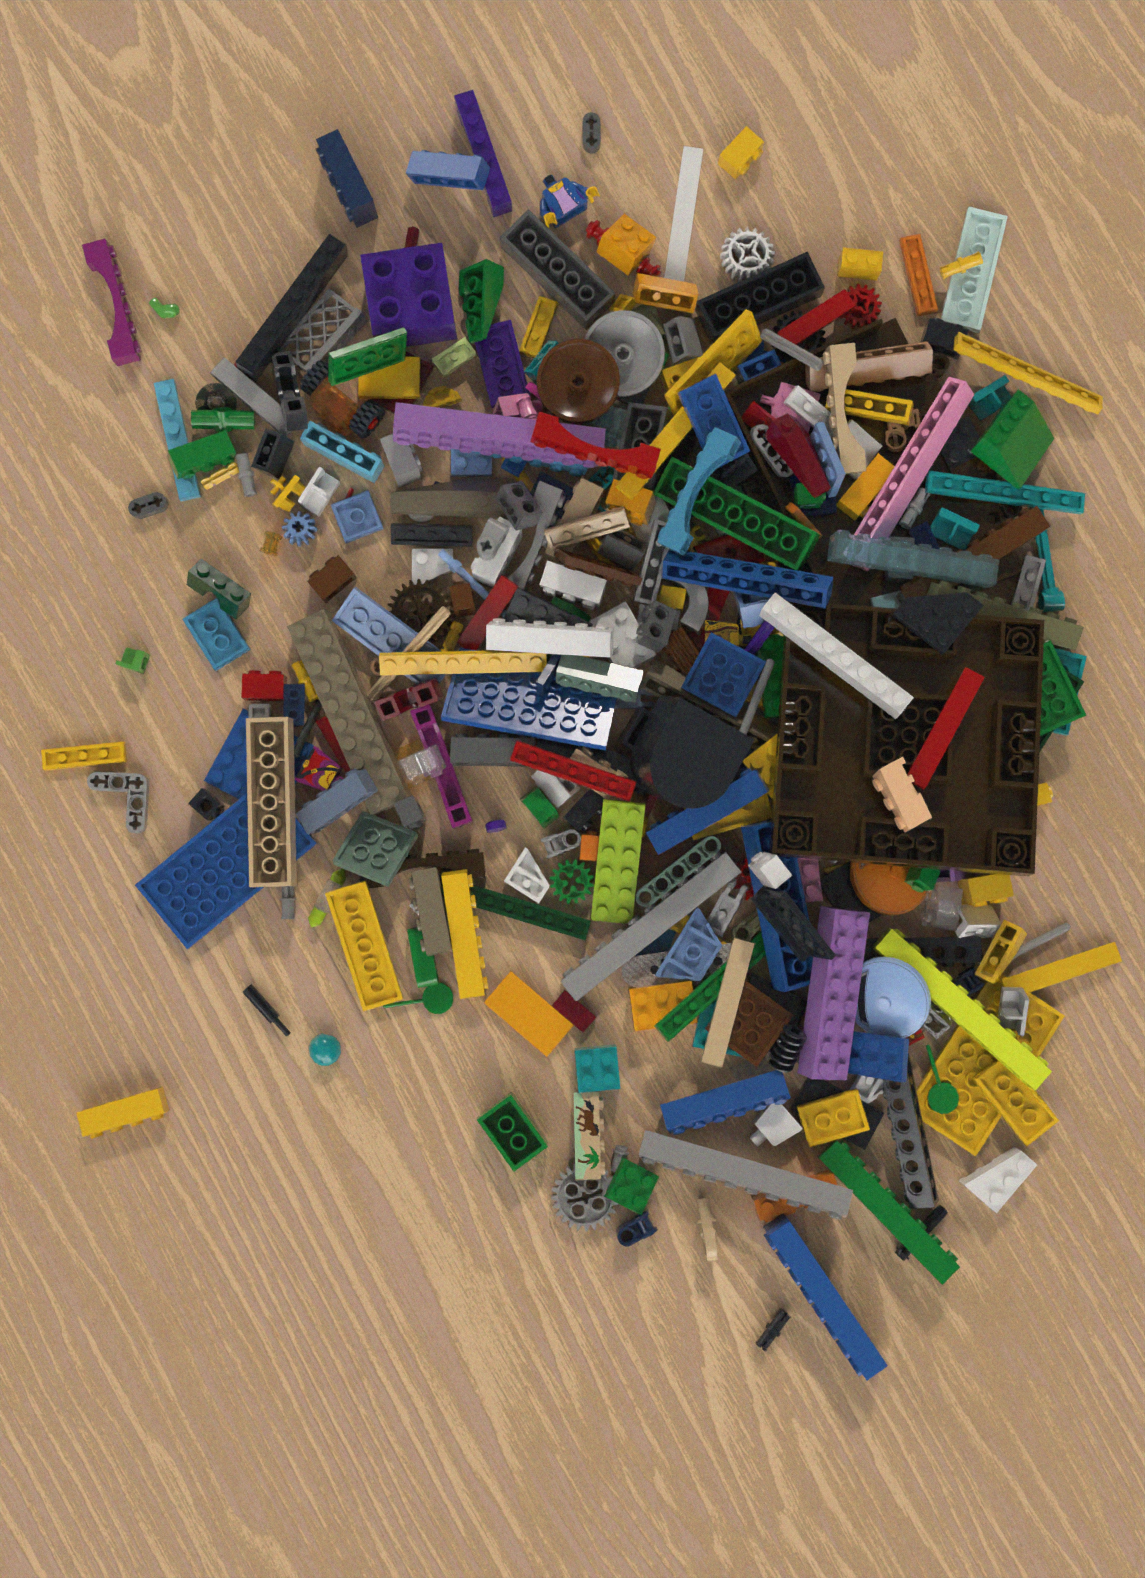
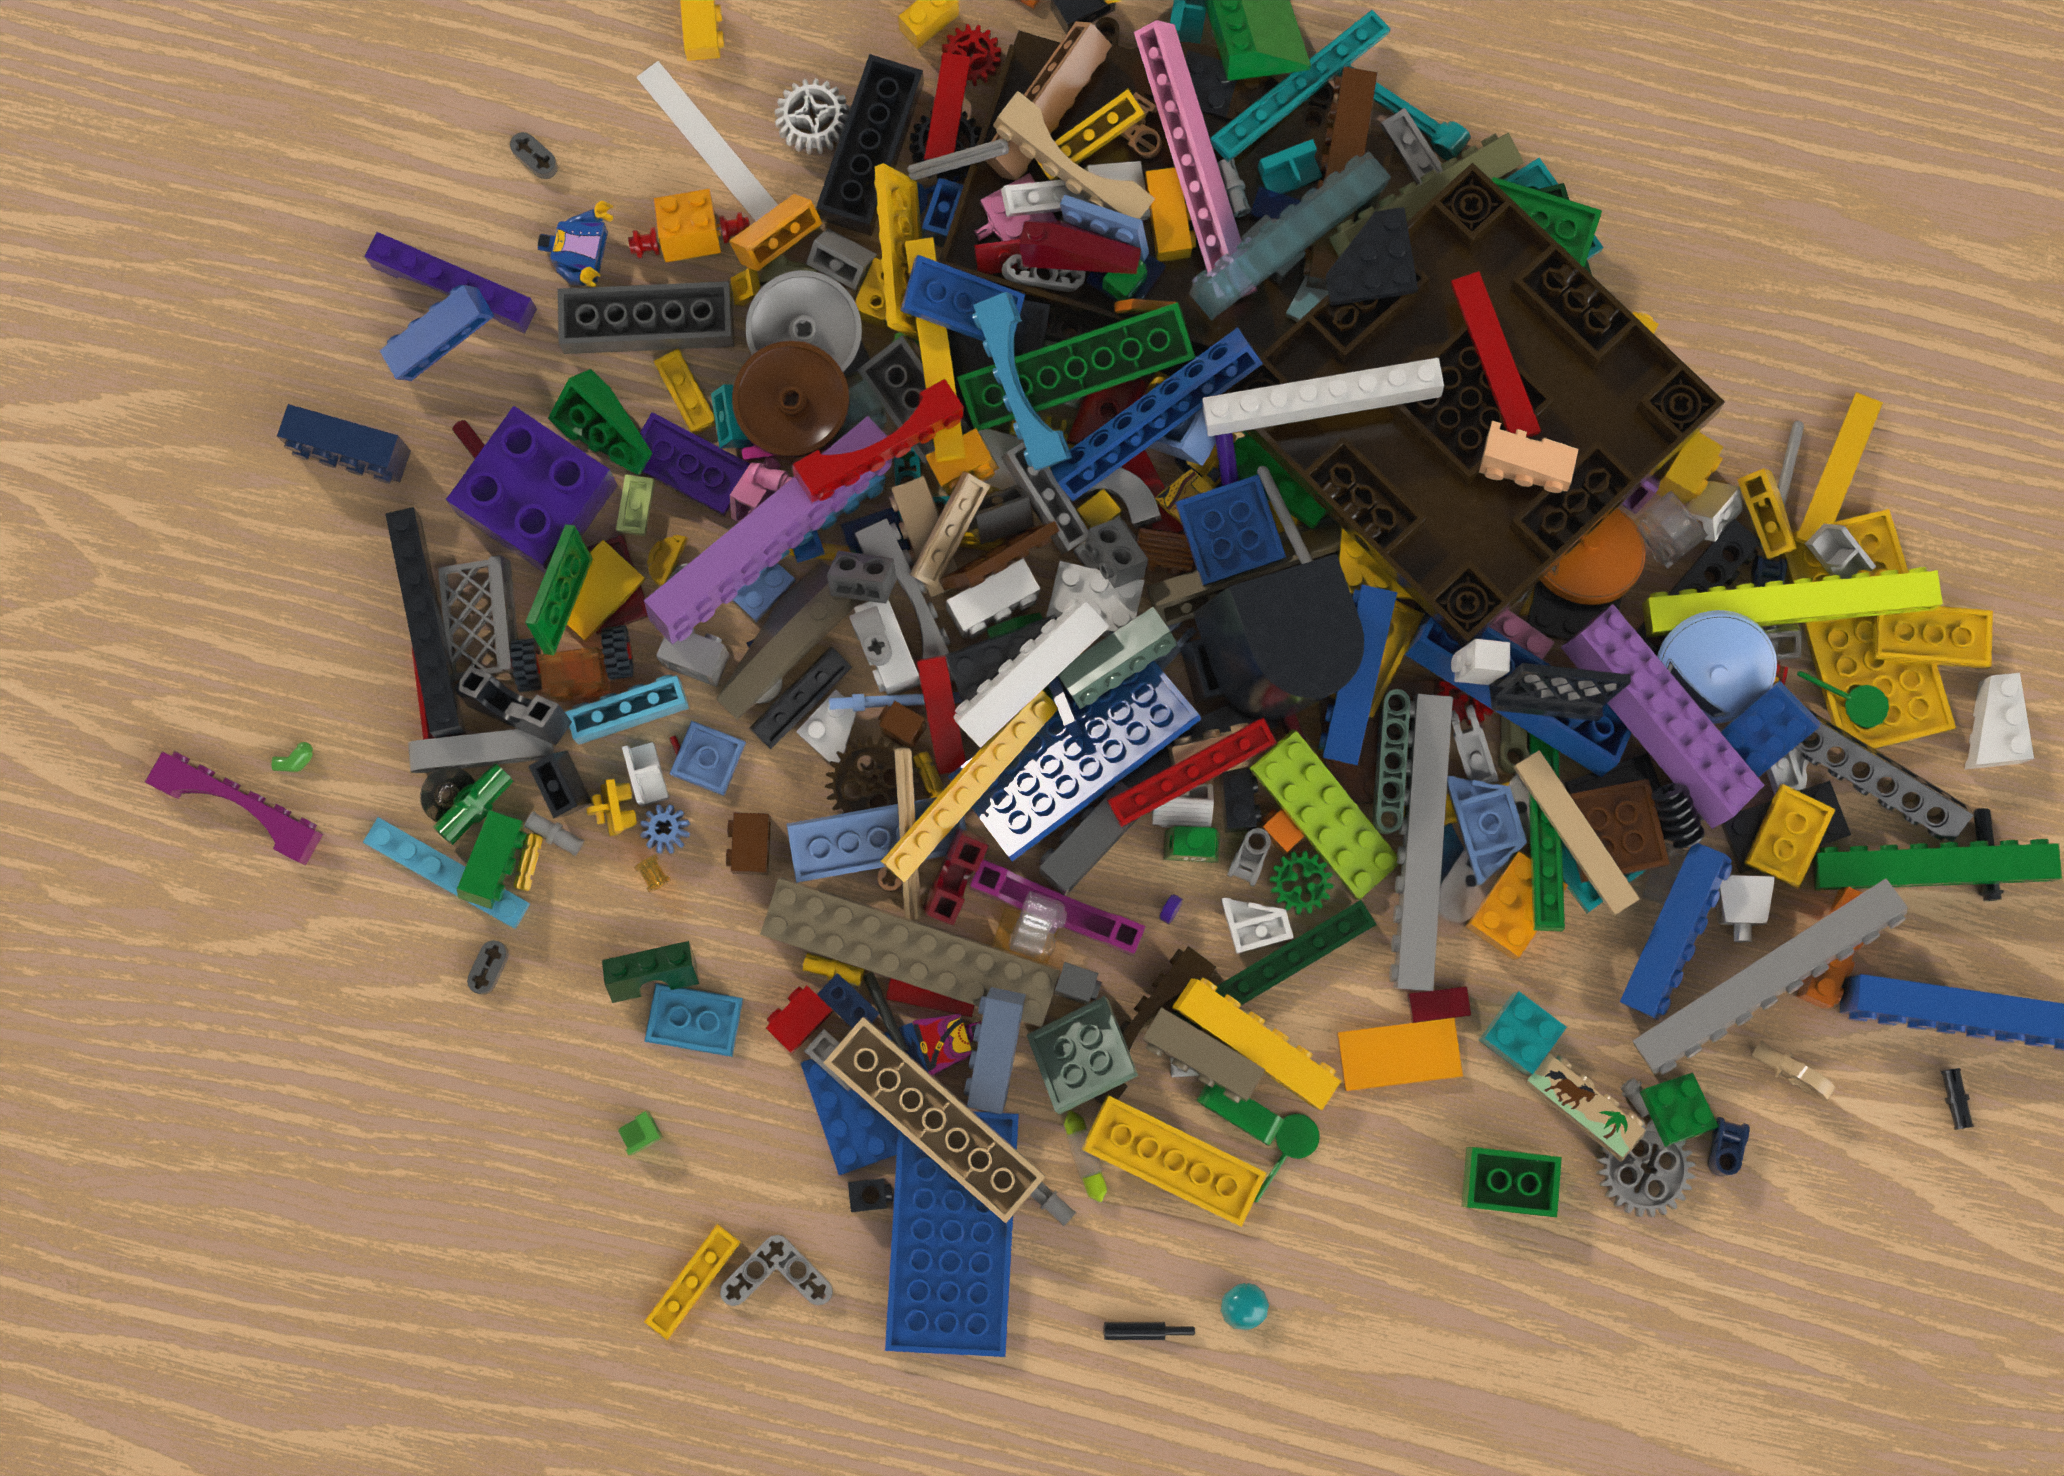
camera: 45 degrees left, 5 degrees down
(922, 878) = (1623, 522): green brick -> none

